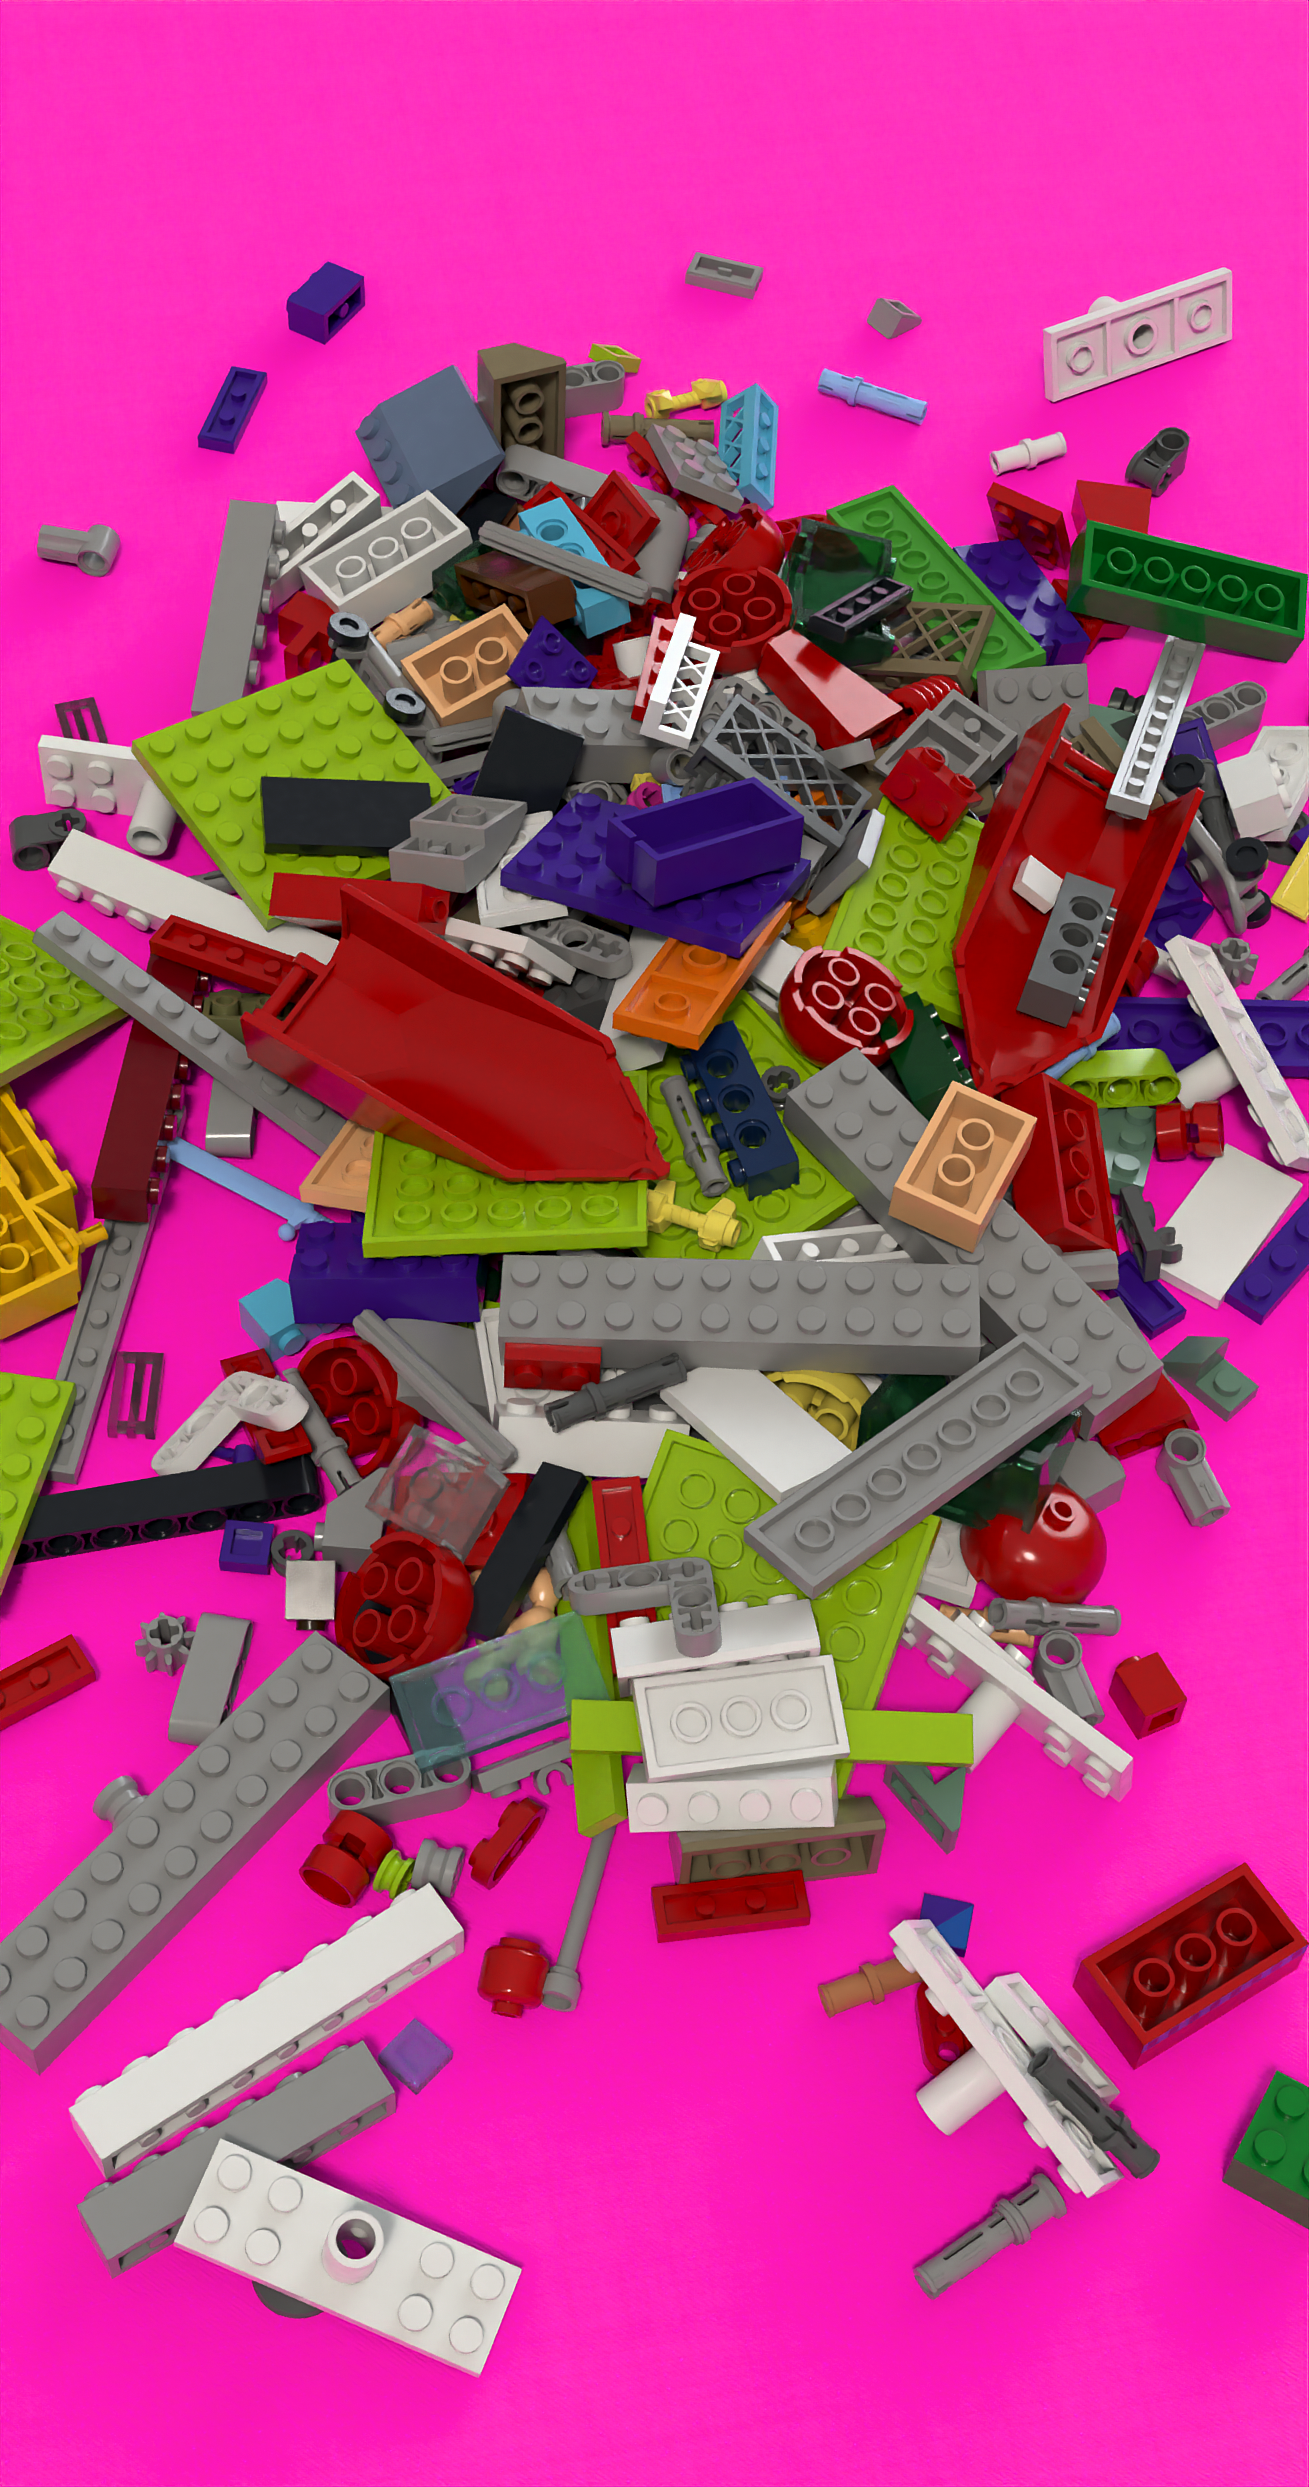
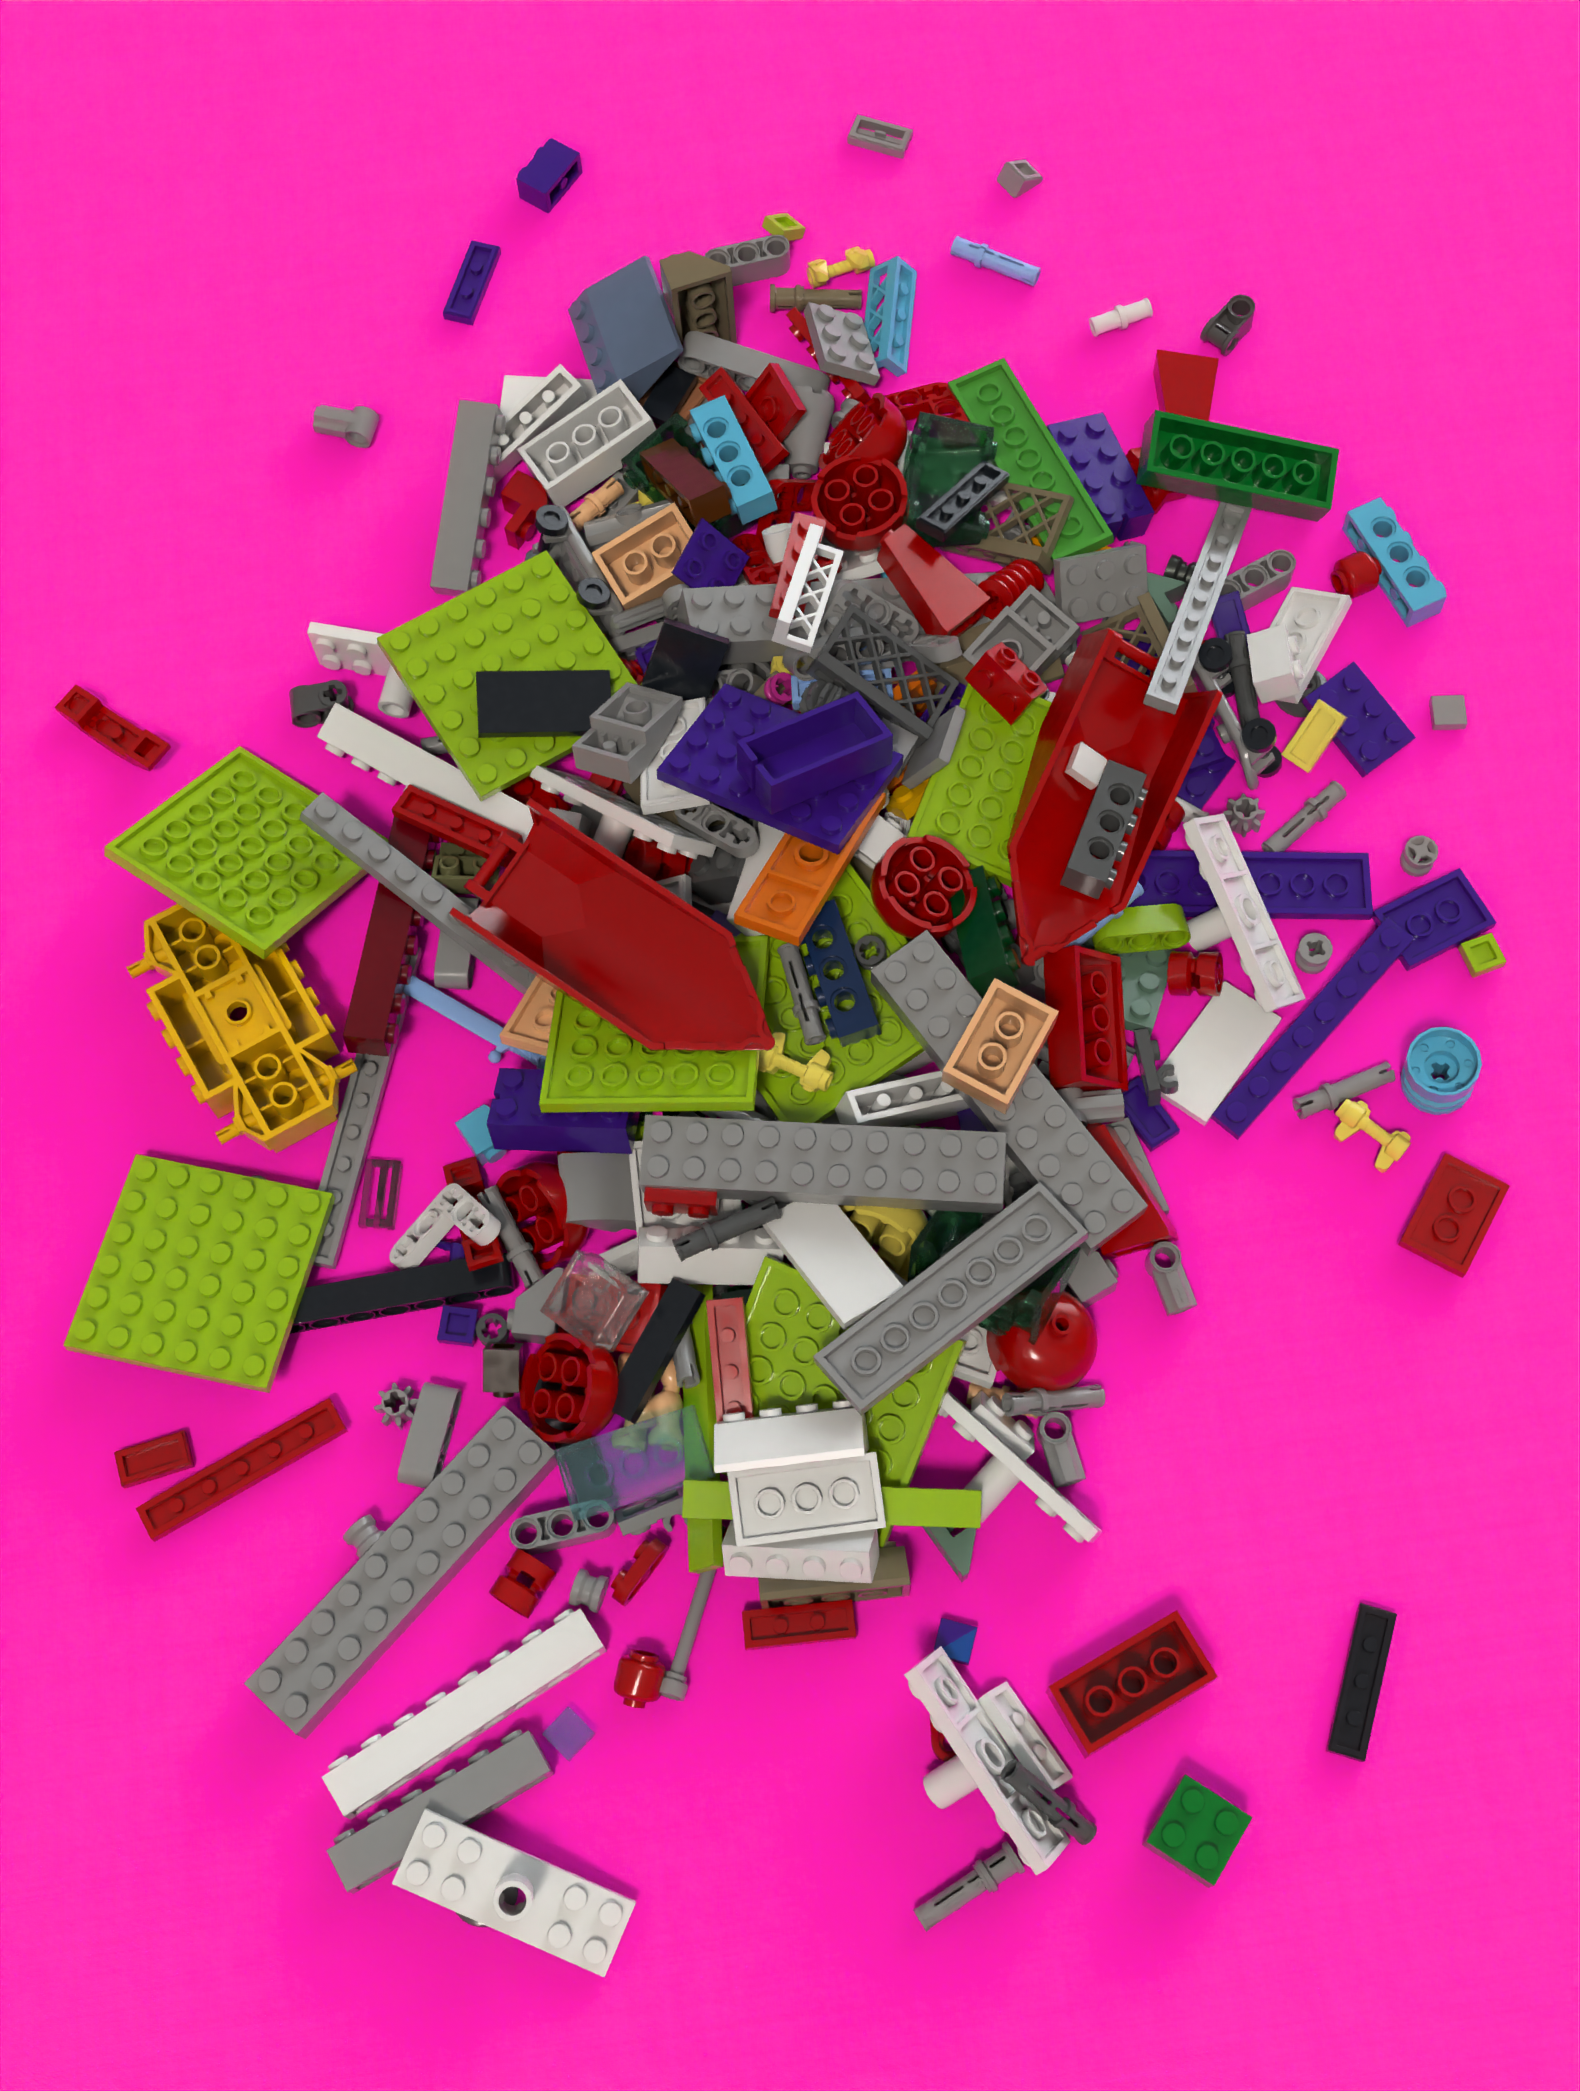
camera: 10 degrees right, 15 degrees up
(75, 707) = (354, 621): clear smoke tile -> none
(316, 901) = (555, 791): red slope -> none
(394, 1874) = (557, 1595): lime bush -> none
(436, 1390) = (593, 1218): light grey axle -> none
(565, 563) = (723, 464): light grey axle -> none
(656, 1584) = (764, 1397): light grey beam -> none
(866, 1985) = (886, 1692): nougat pin -> none
(1033, 523) = (1108, 401): red plate -> none
(1137, 333) = (1220, 197): plate -> none
(1147, 1694) = (1119, 1459): red brick -> none
(1202, 1370) = (1191, 1186): sand green slope -> none

